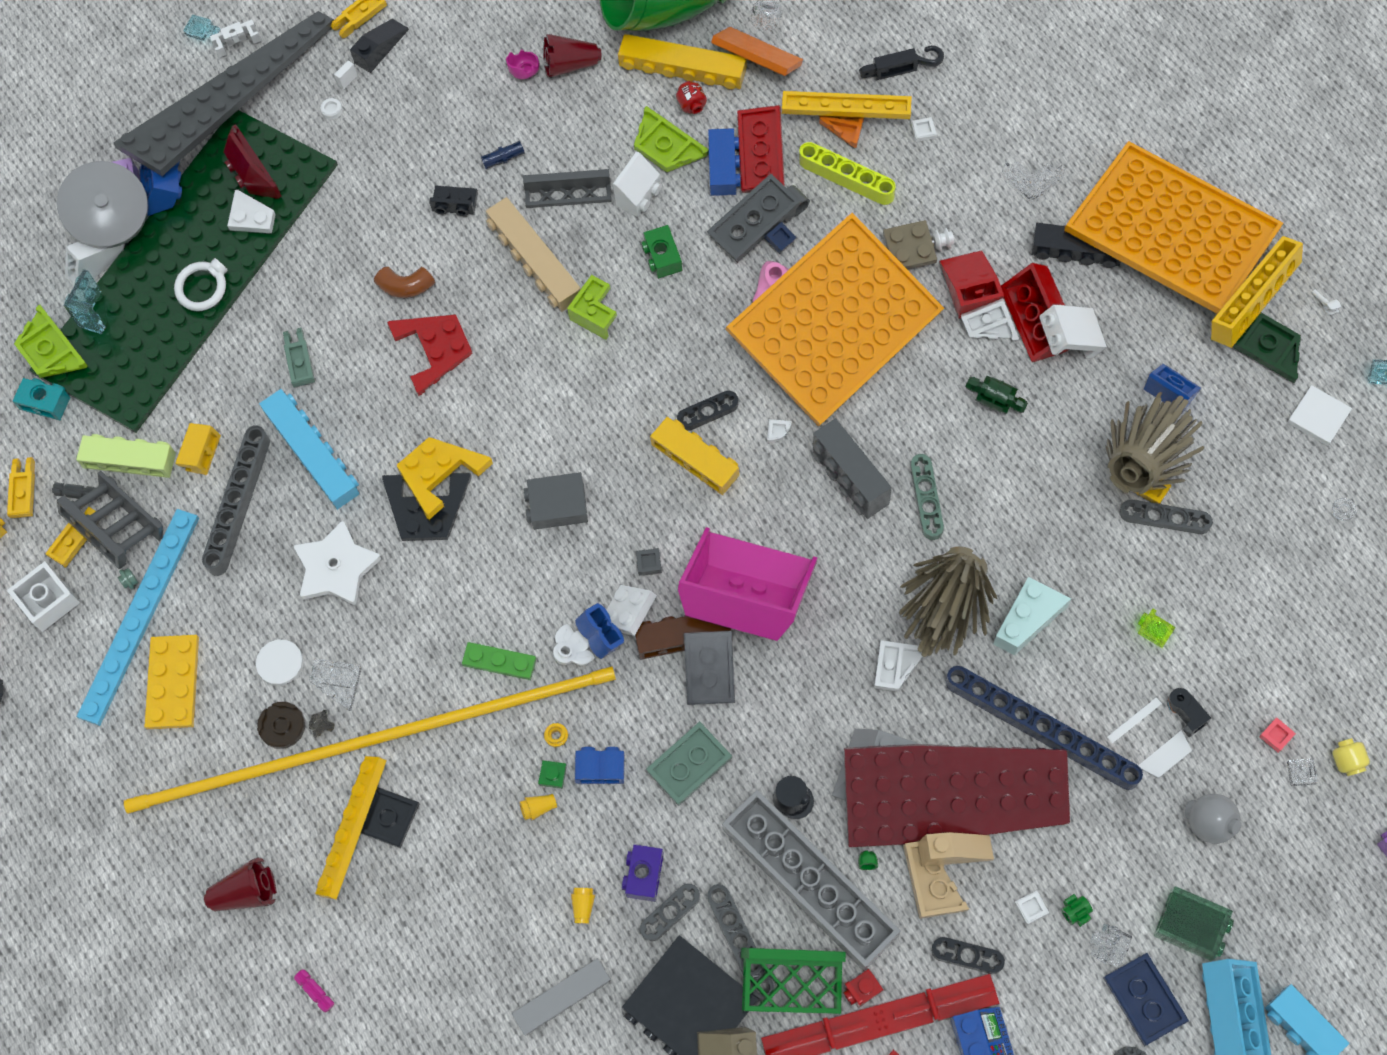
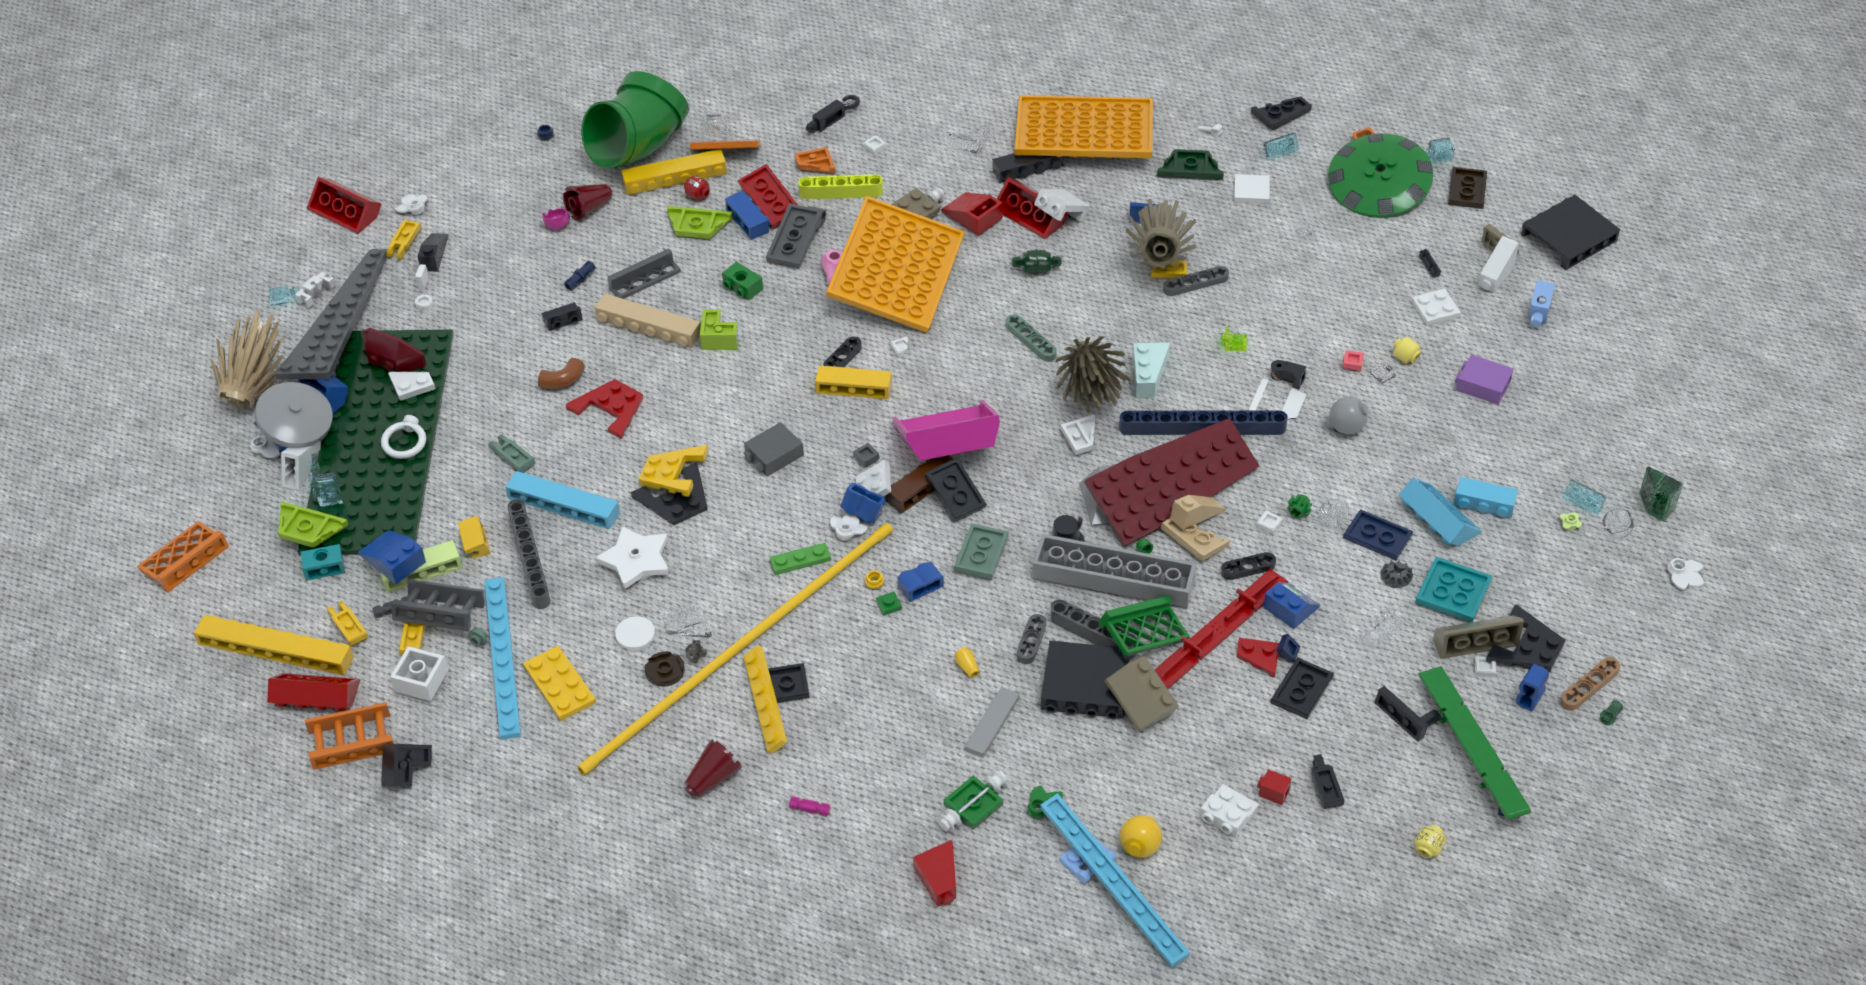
camera: 35 degrees left, 20 degrees down
(97, 435) = (394, 555): none -> blue slope
(99, 117) = (247, 363): none -> tan plant
(536, 806) = (891, 624): yellow cone -> none
(636, 185) = (696, 250): white slope -> none
(647, 887) = (997, 623): dark purple brick -> none
(780, 237) = (820, 240): dark blue plate -> none
(846, 105) = (813, 147): yellow plate -> none
(851, 469) = (970, 338): dark grey brick -> none
(862, 989) = (1193, 616): red bracket -> none
(990, 321) = (1002, 225): white wing -> none
(1194, 924) = (1377, 478): clear green brick -> none
(1256, 291) = (1164, 136): yellow brick -> none

